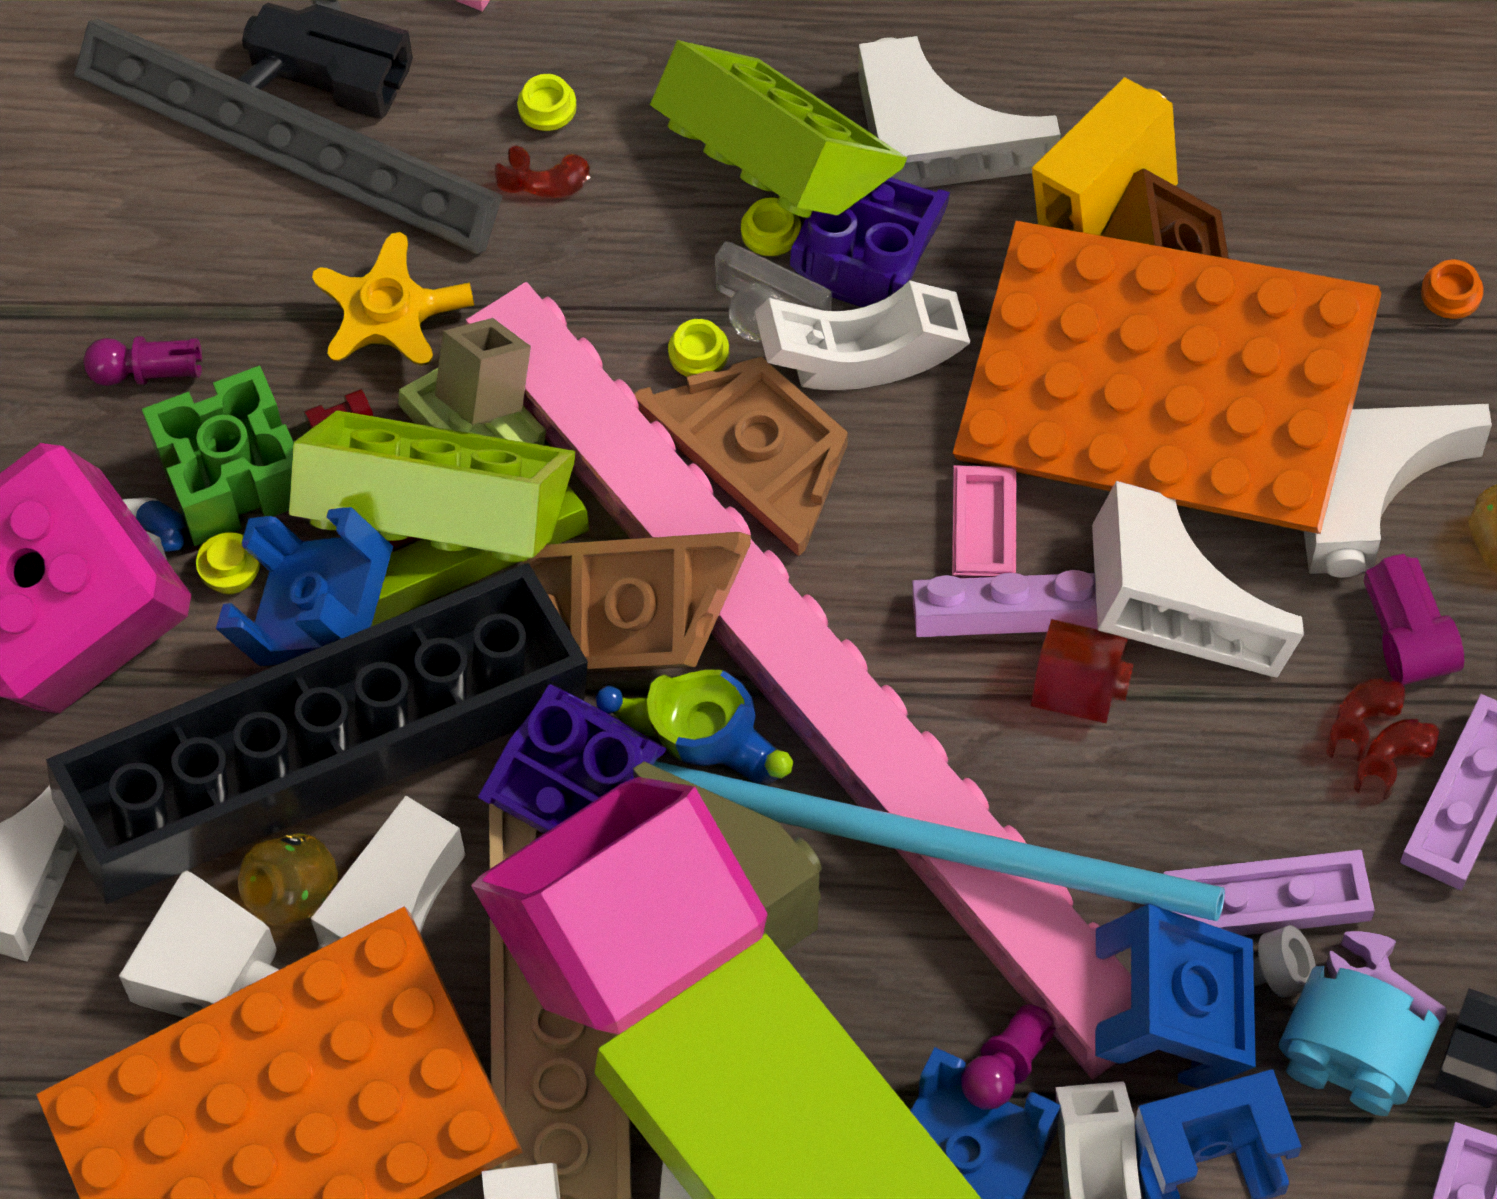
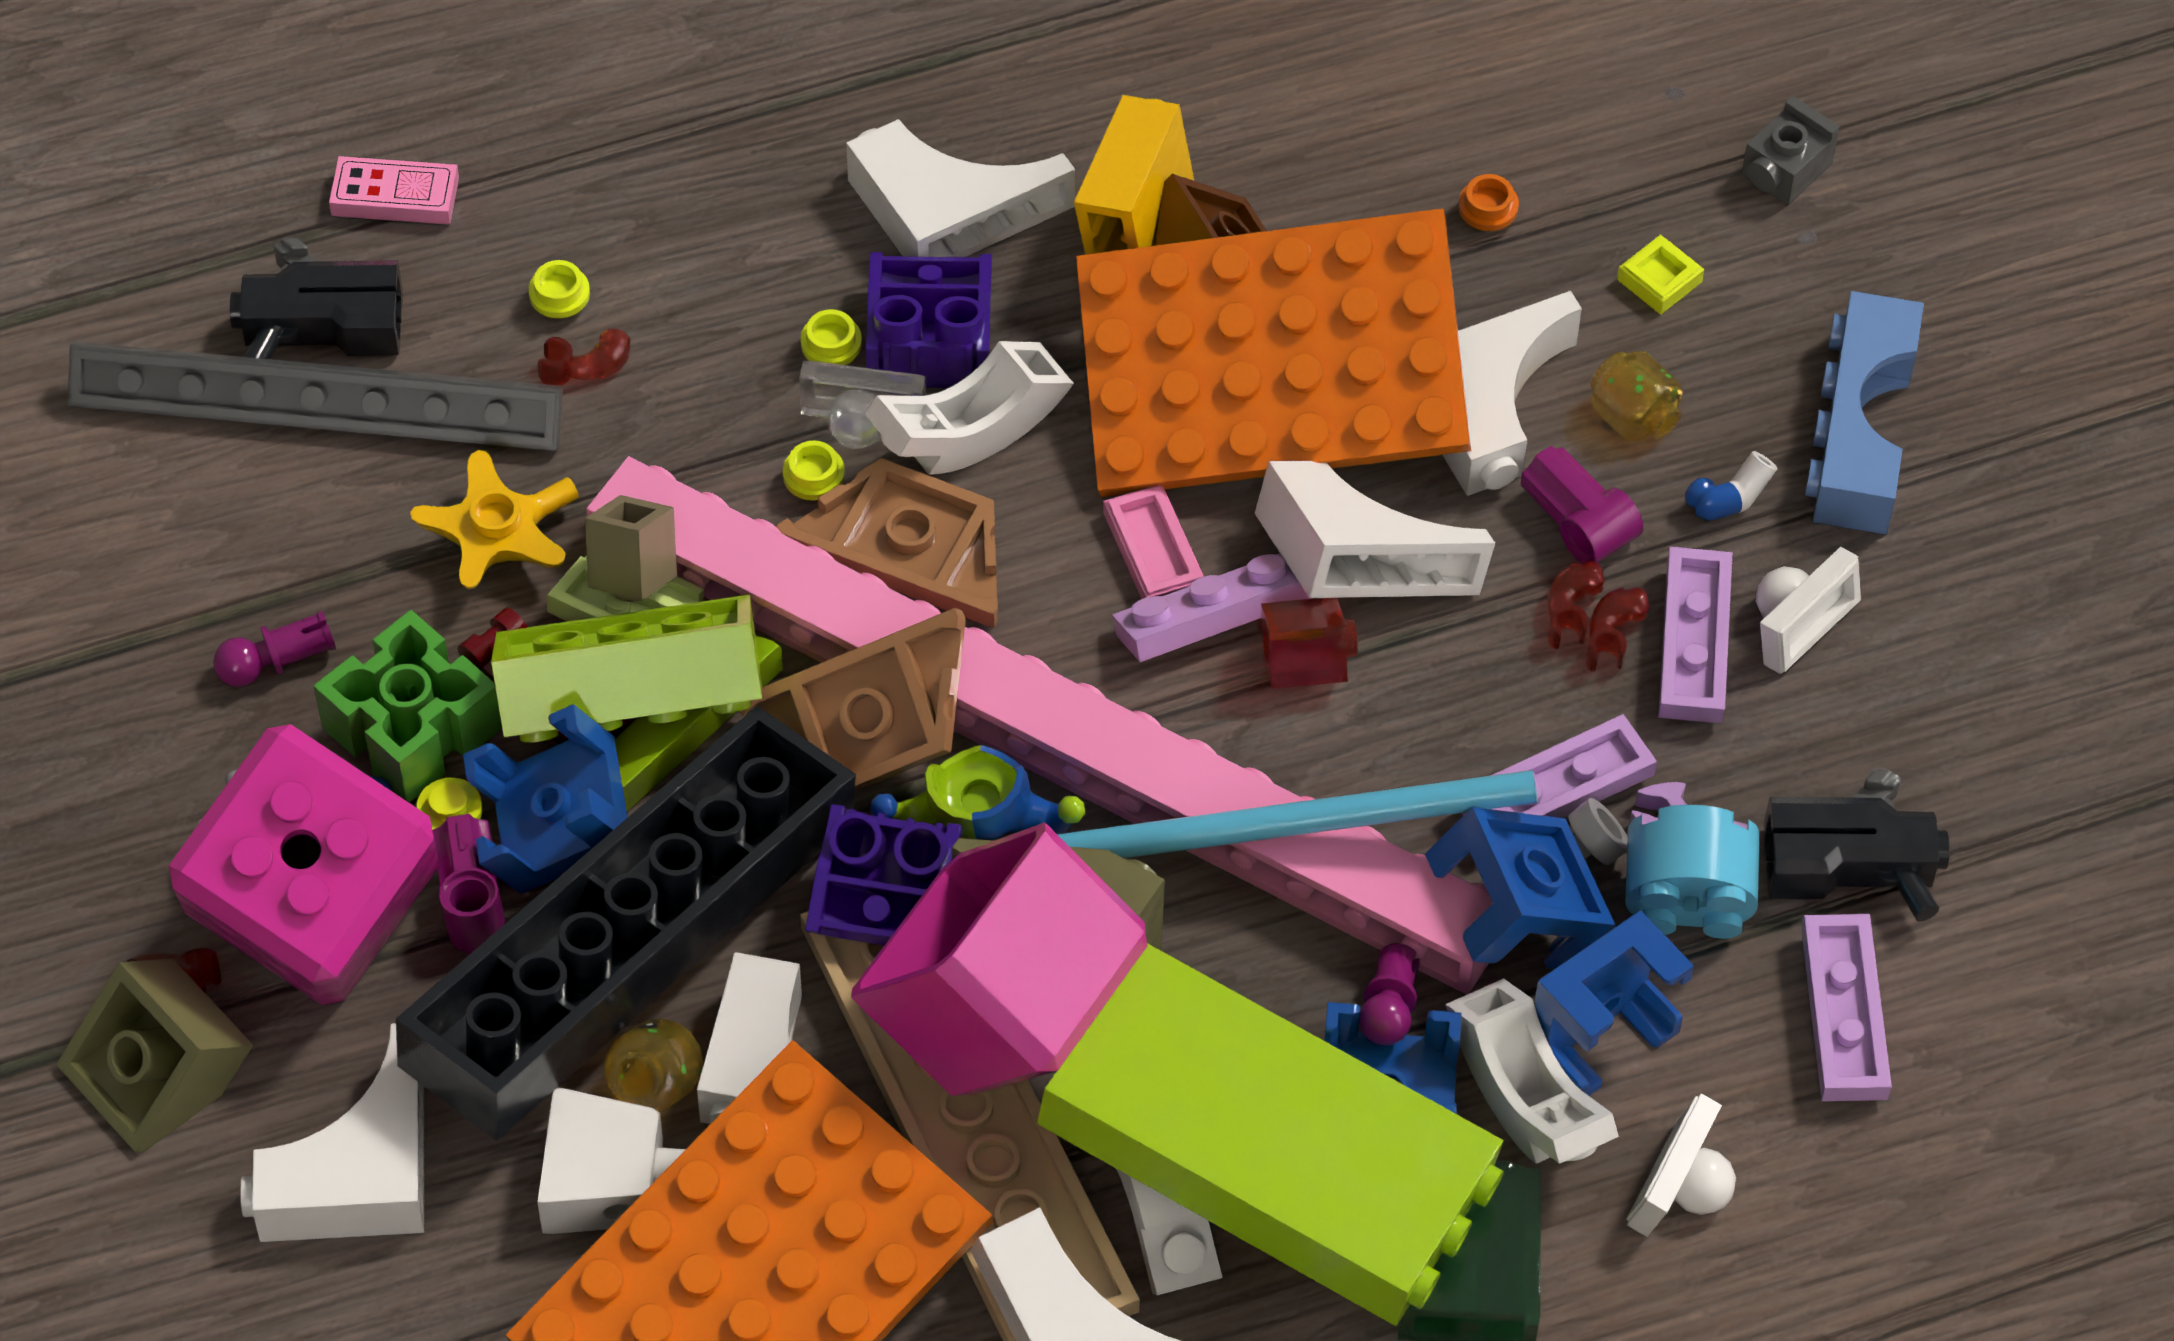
camera: 25 degrees left, 5 degrees down
(201, 643) = (466, 883): none -> magenta piece
(772, 130) = (799, 247): lime slope -> none

